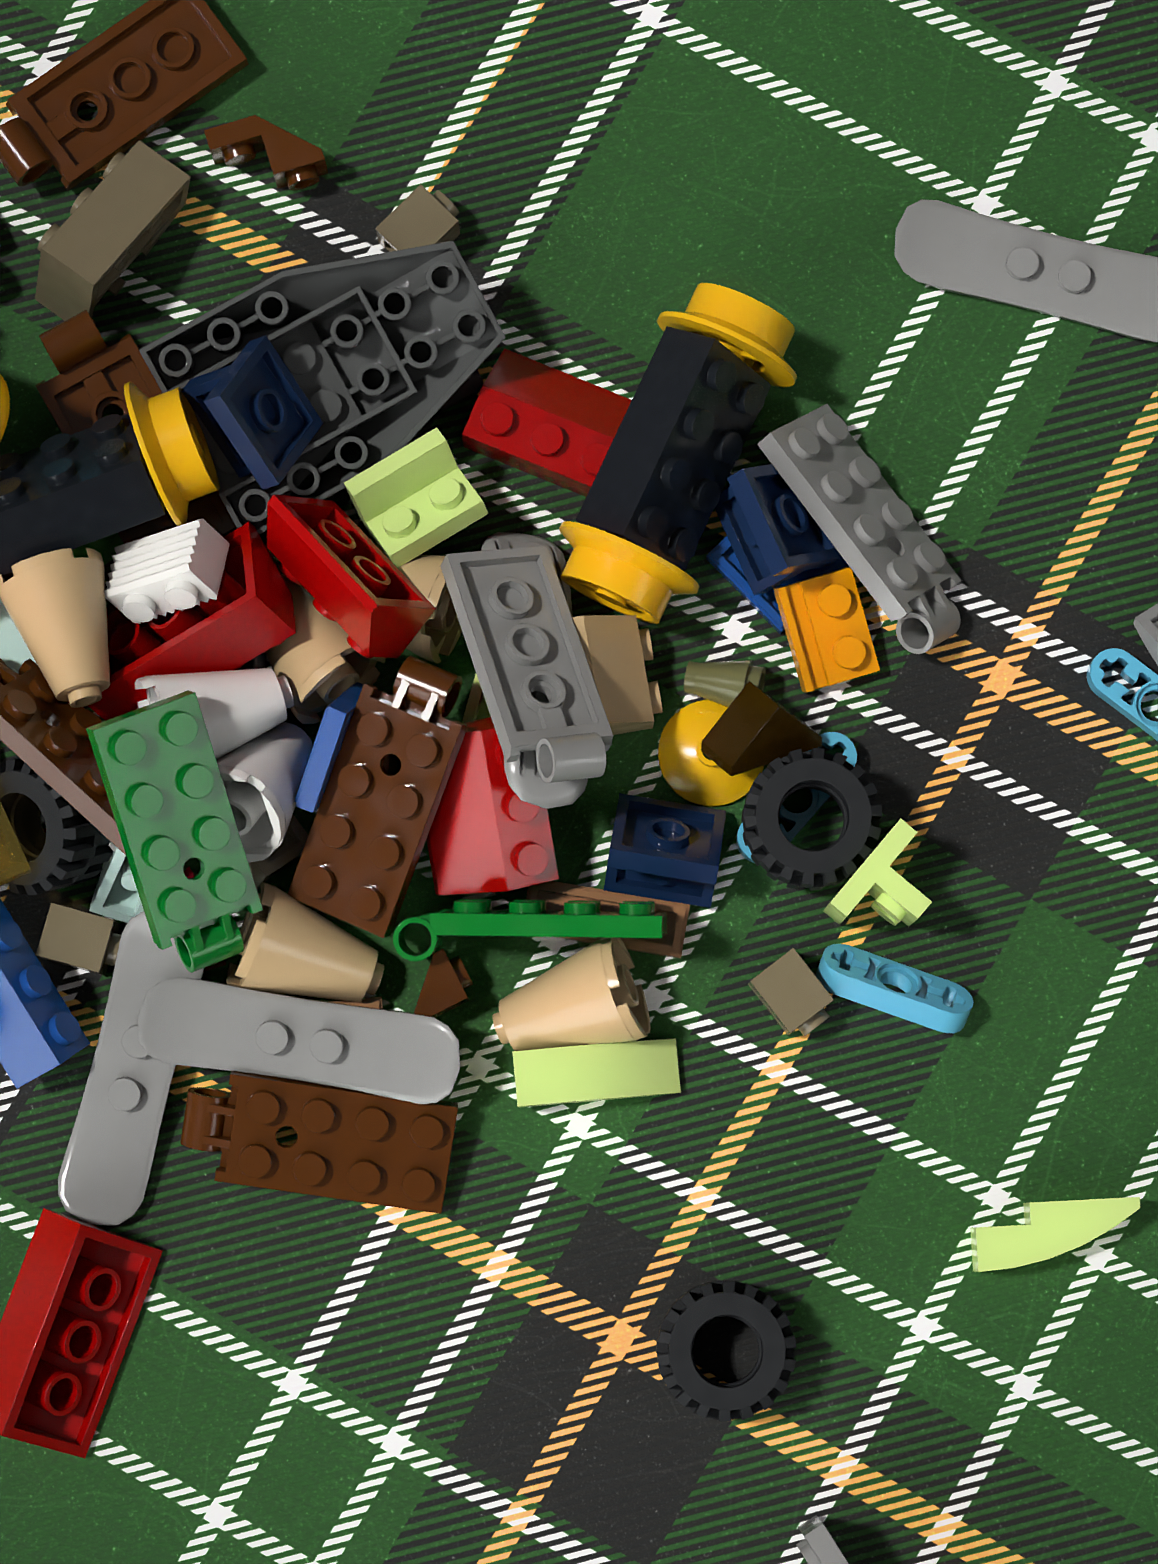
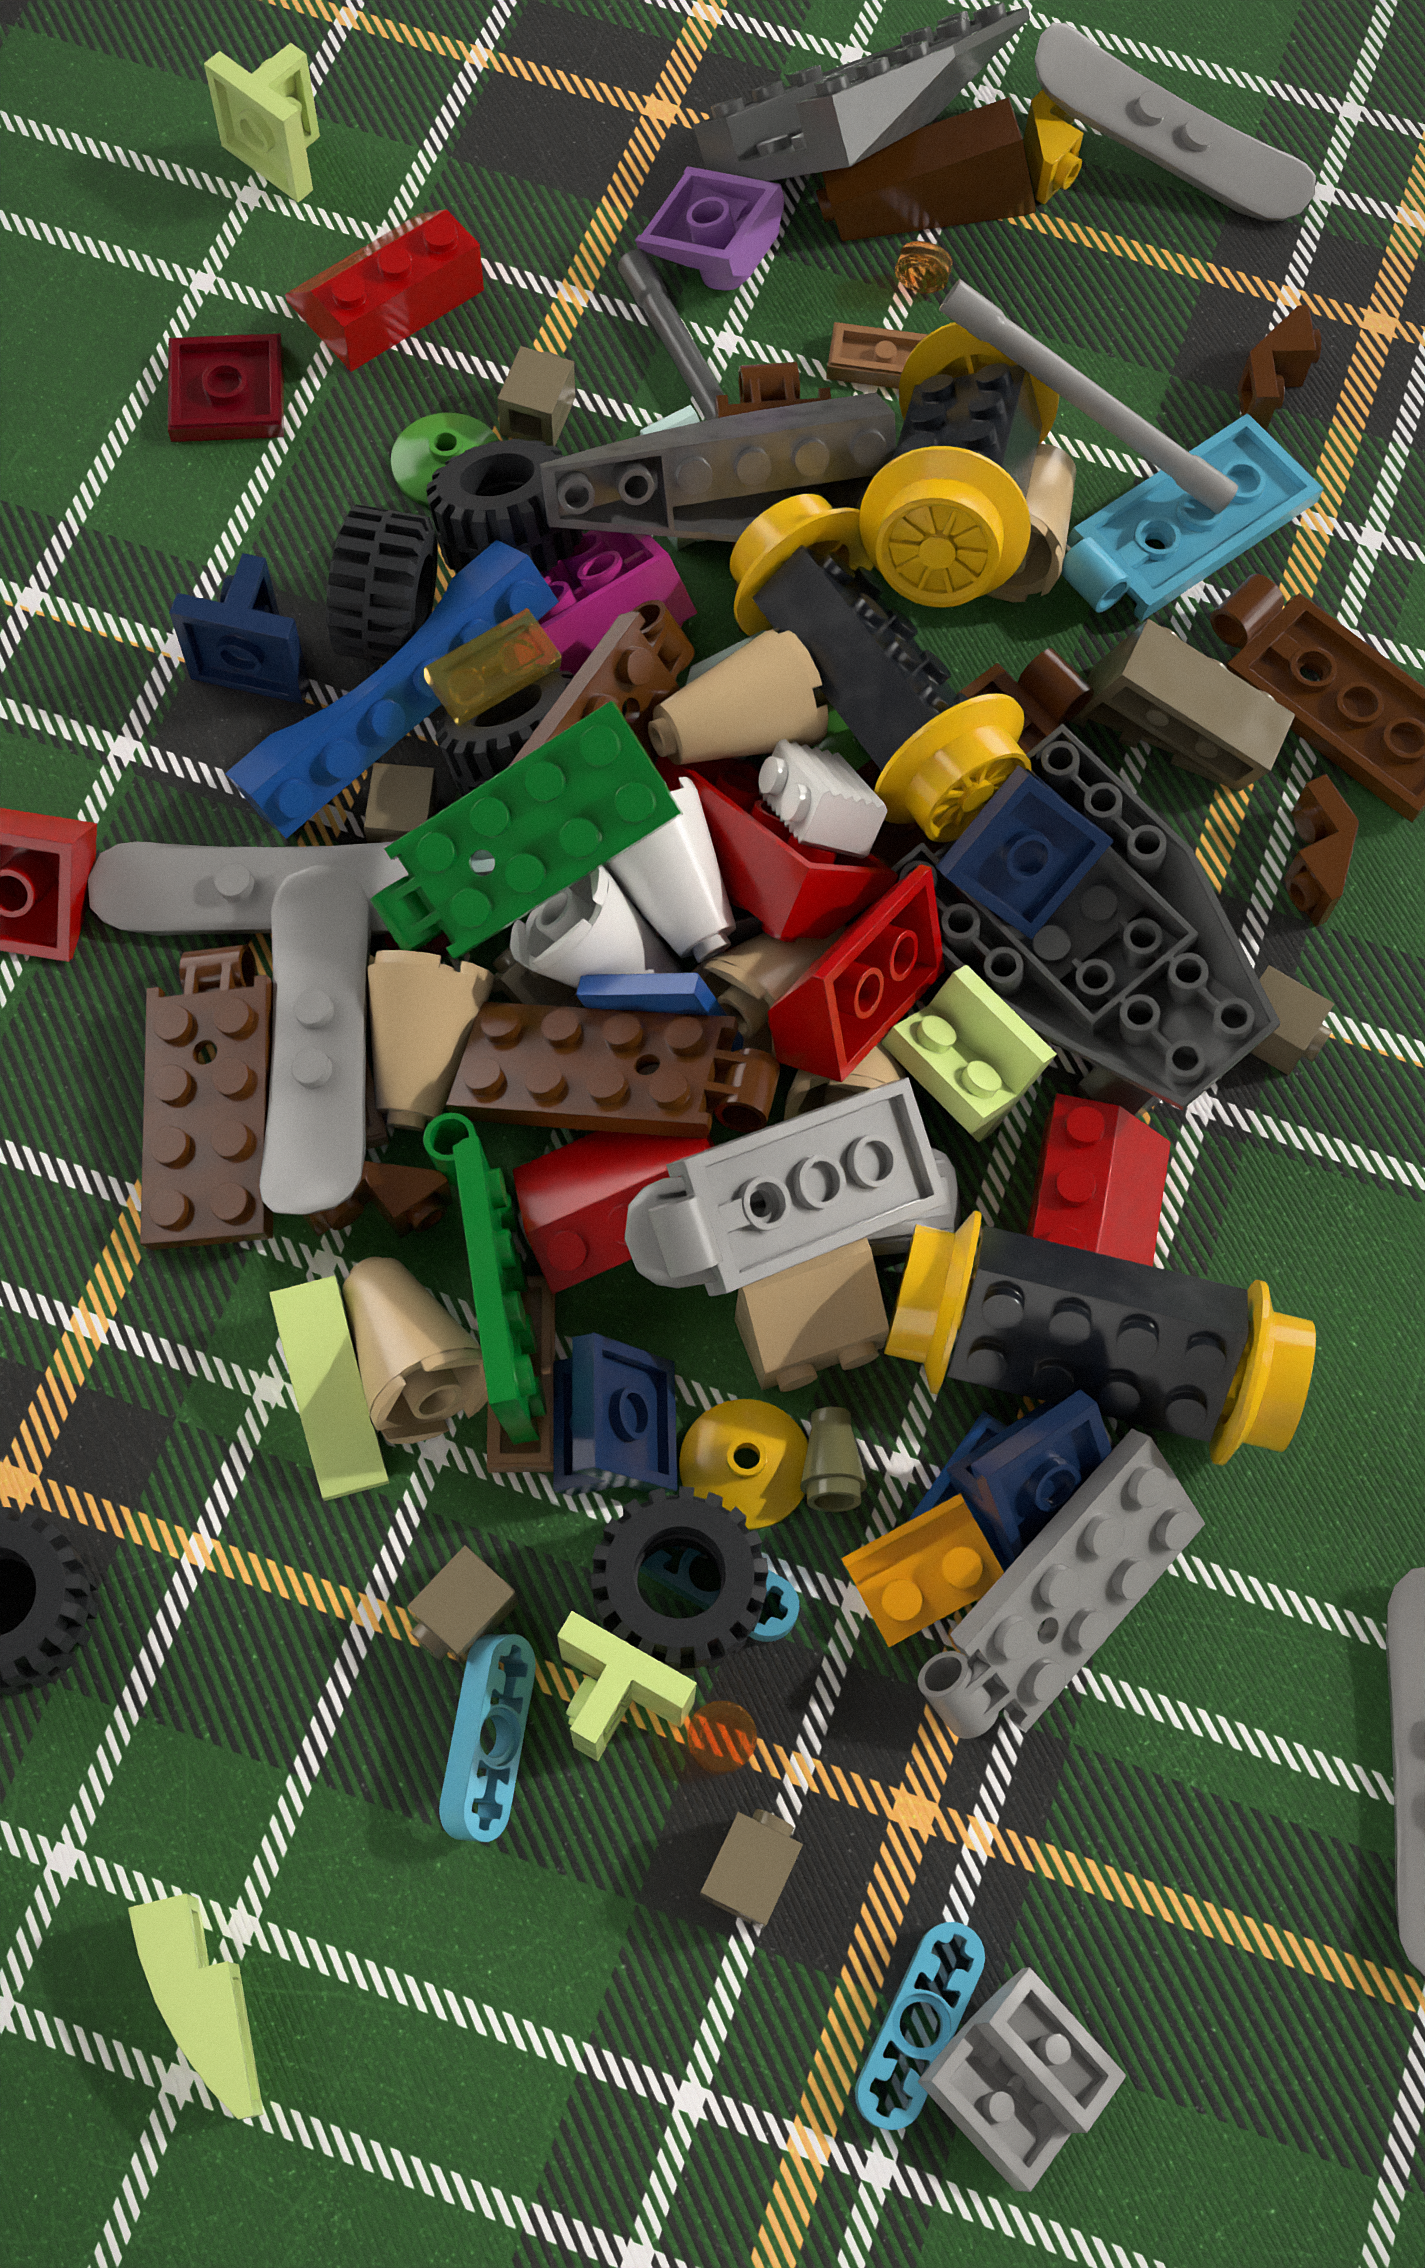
camera: 75 degrees right, 15 degrees down
(756, 733) = (780, 1498): dark brown slope -> none
(925, 810) = (722, 1737): none -> clear orange tile
(1026, 806) = (752, 1867): none -> dark tan brick

